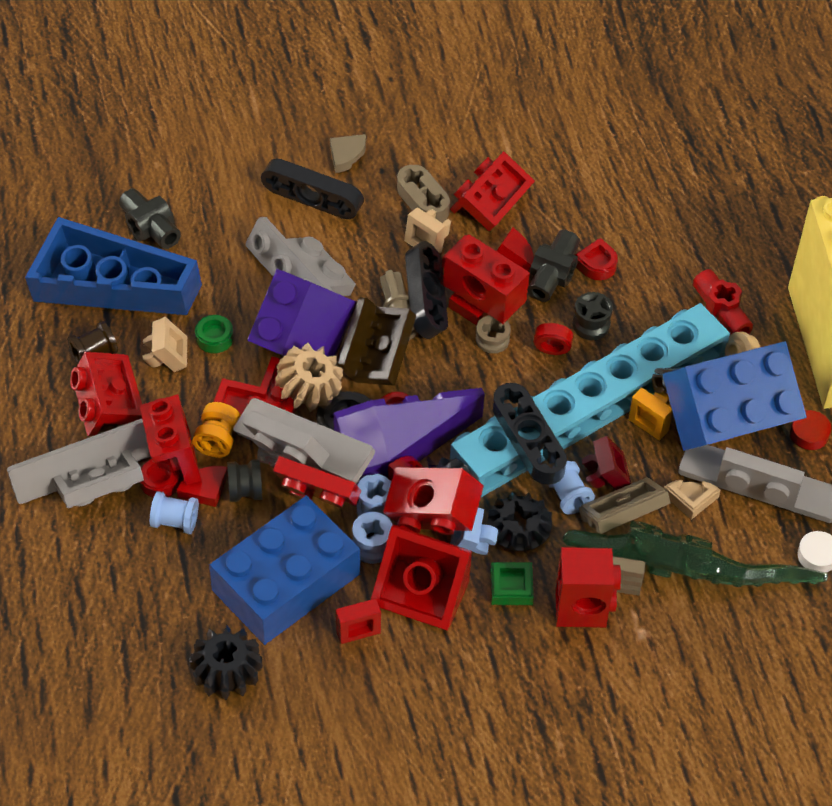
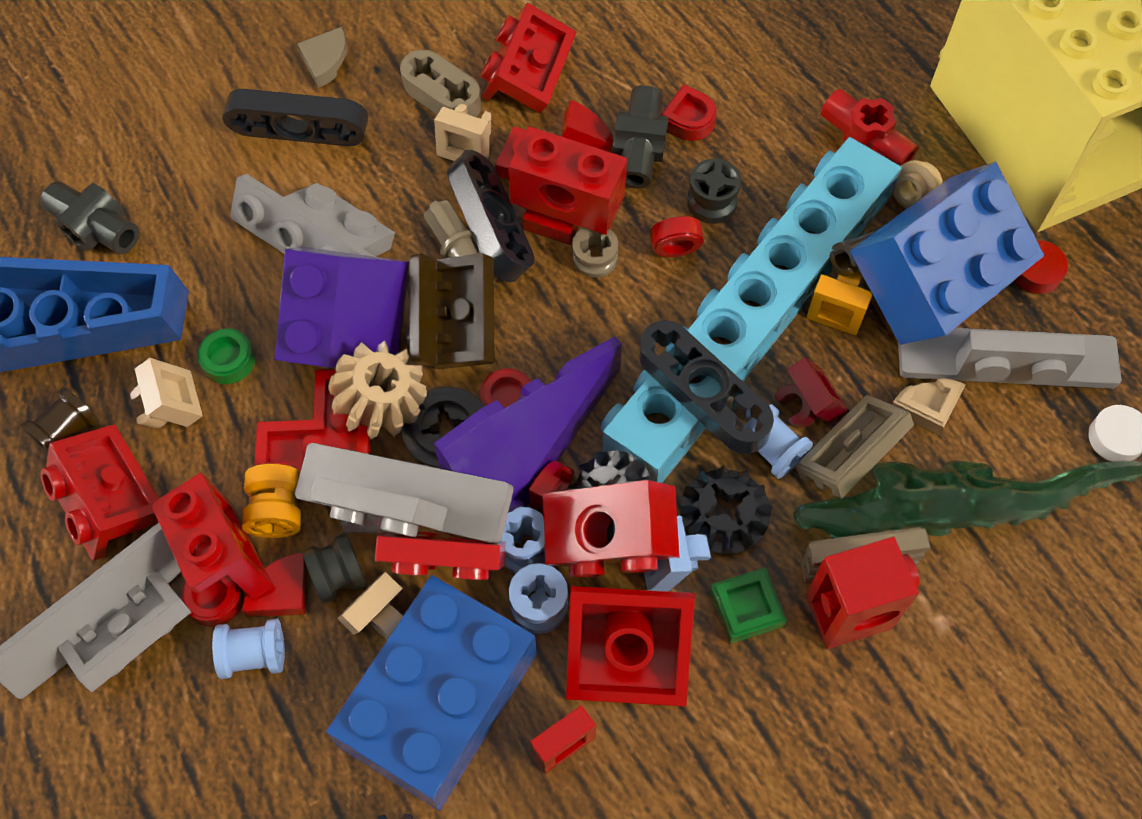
camera: 15 degrees left, 10 degrees up
(260, 508) = (374, 608): none -> tan tile

